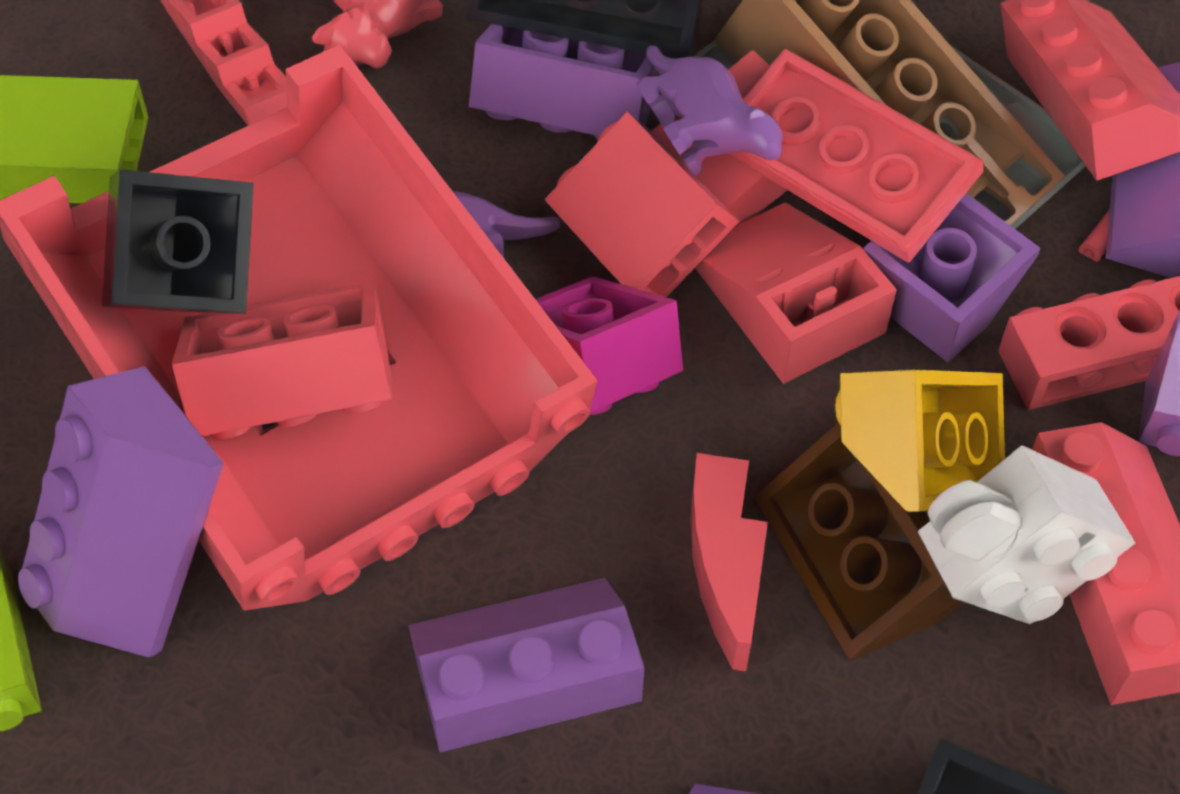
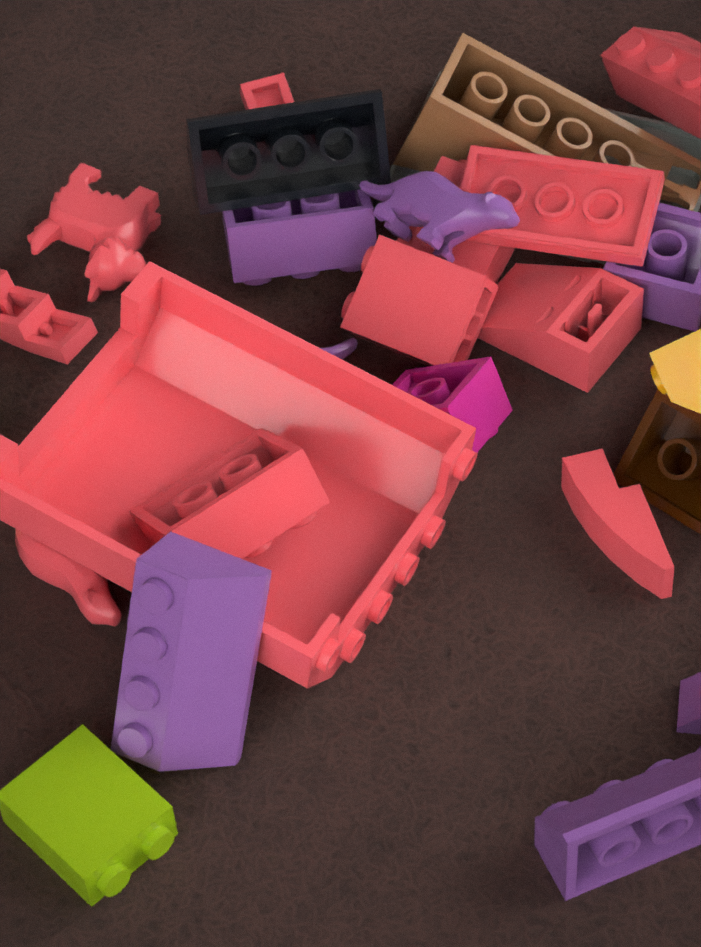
camera: 20 degrees left, 5 degrees down
(177, 243) = (106, 453): black slope -> none
(527, 663) = (519, 650): medium lavender slope -> none

